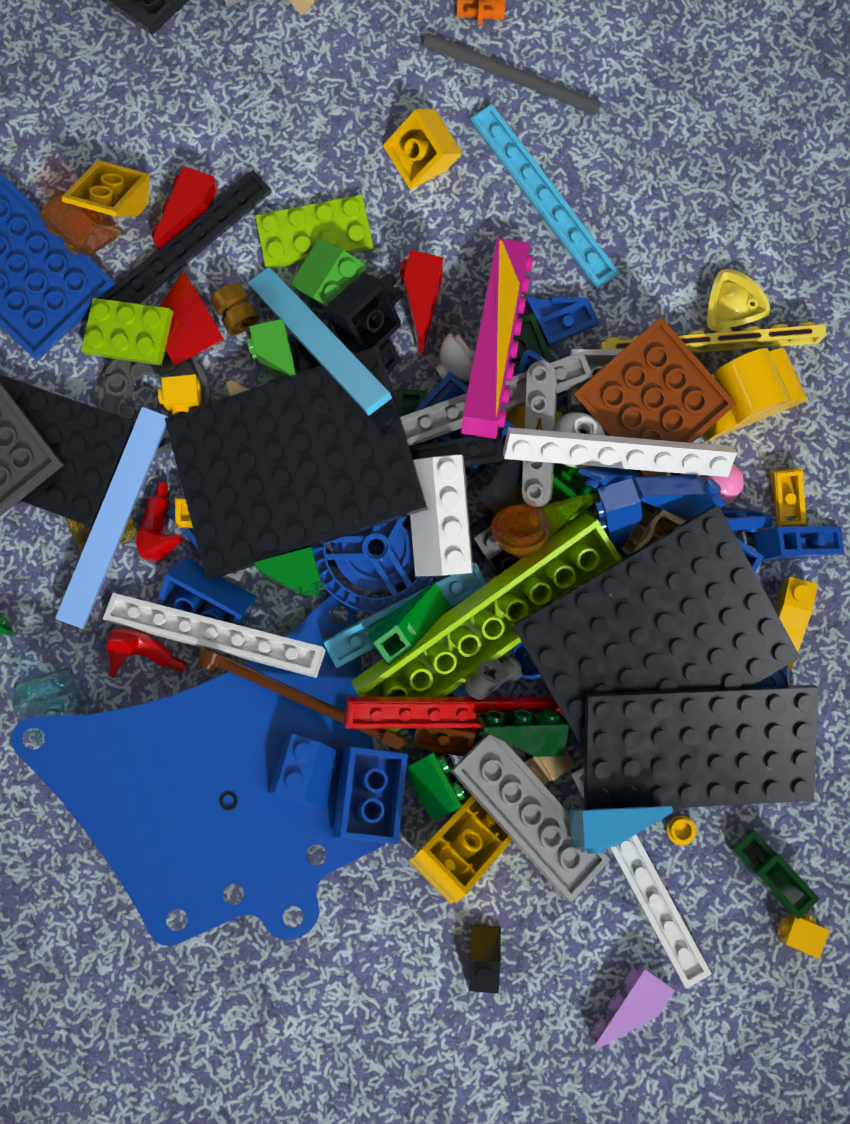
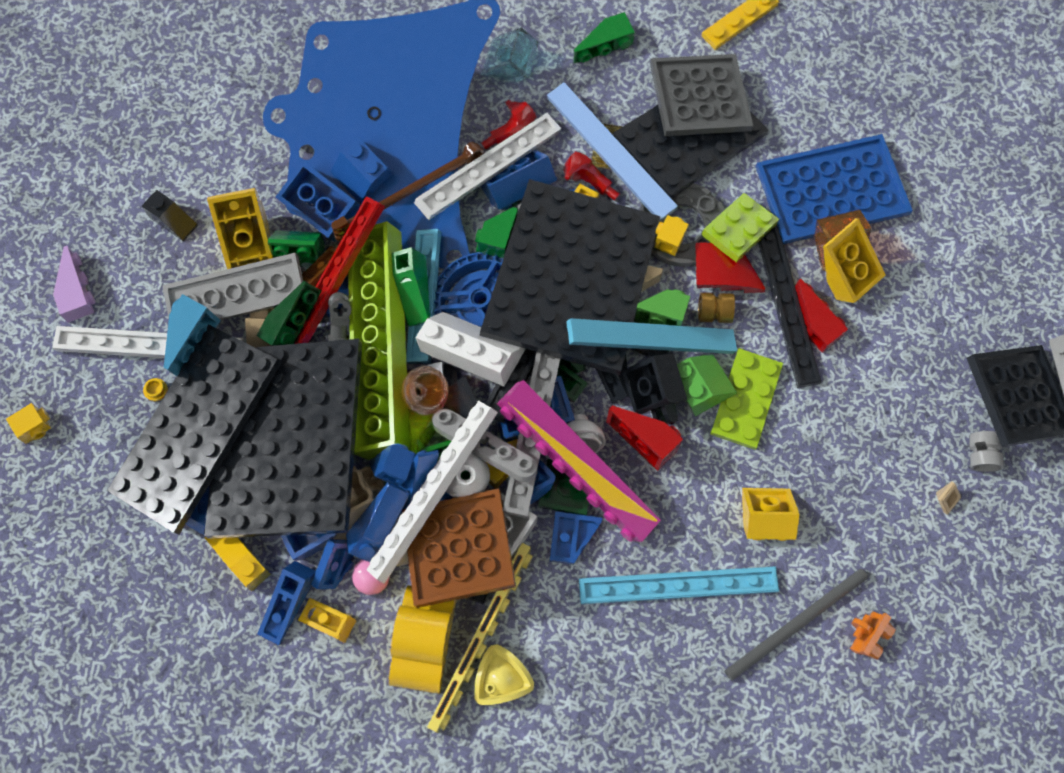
camera: 120 degrees right, 10 degrees down
(774, 873) = (81, 428): dark green slope -> none

